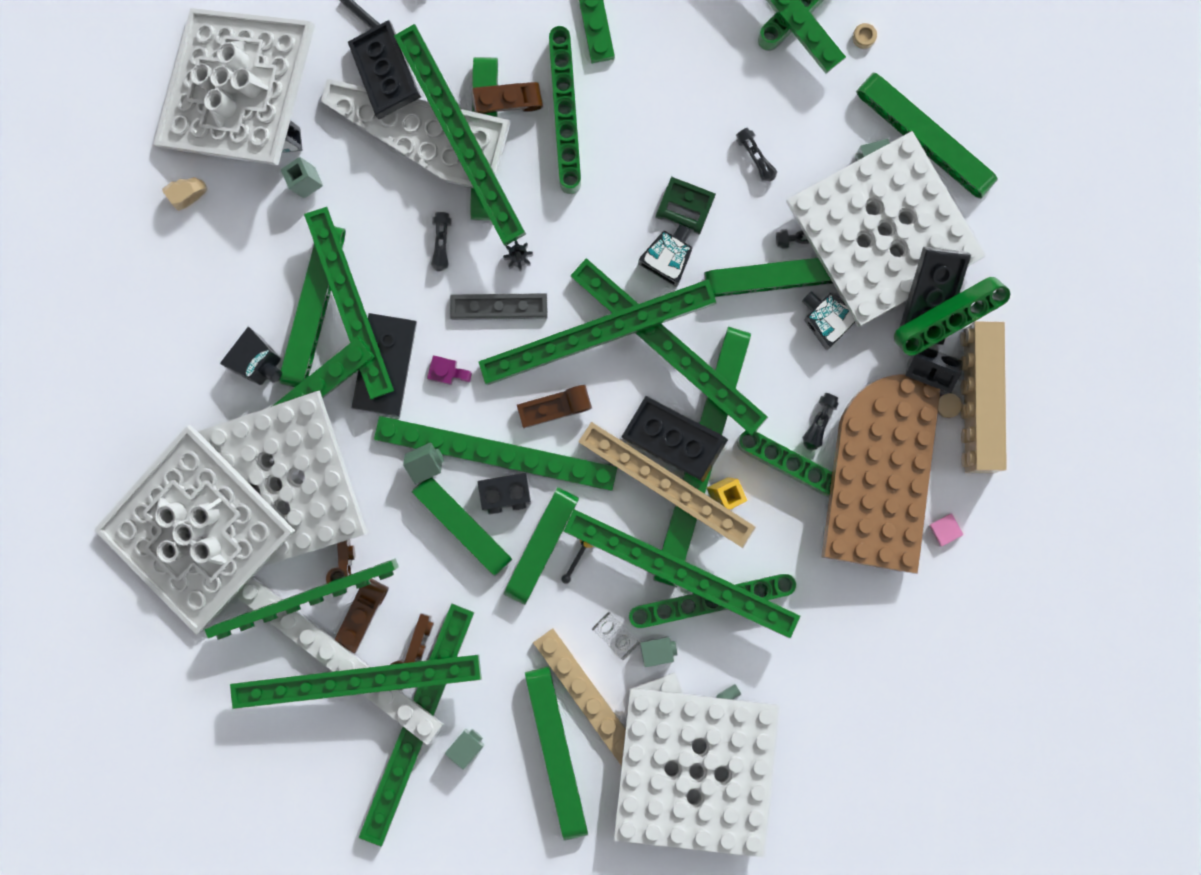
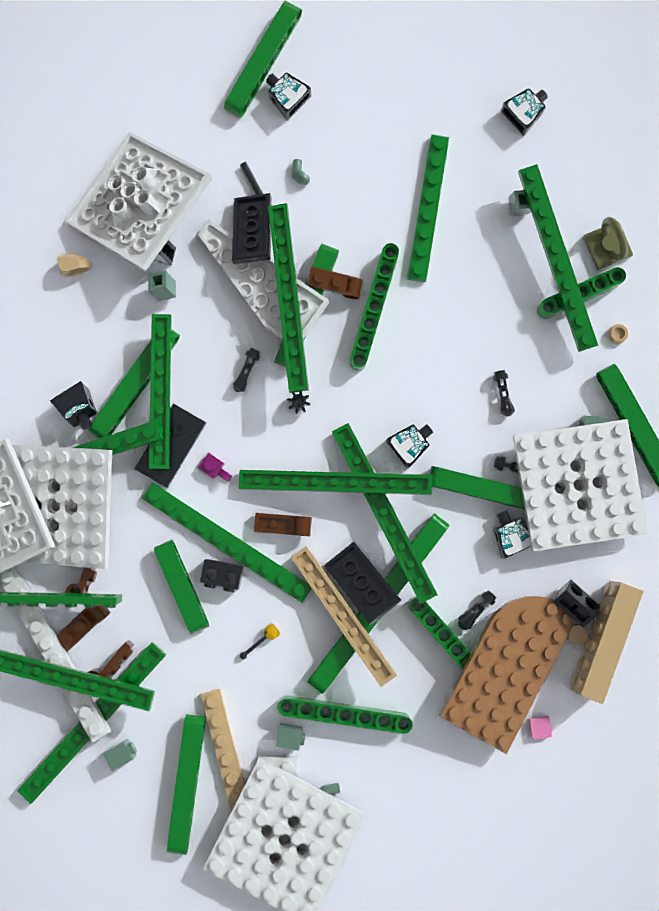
camera: 25 degrees right, 0 degrees up
(423, 463) = (170, 530): sand green brick -> none
(498, 306) = (270, 434): dark grey tile -> none
(541, 546) = (234, 624): green beam -> none
(617, 638) = (264, 714): clear bracket -> none
(682, 574) = (330, 688): green plate -> none
(689, 198) = (439, 404): dark green plate -> none
(727, 493) = (386, 639): yellow brick -> none
(935, 281) = (597, 549): black plate -> none
(939, 317) = (605, 570): green beam -> none

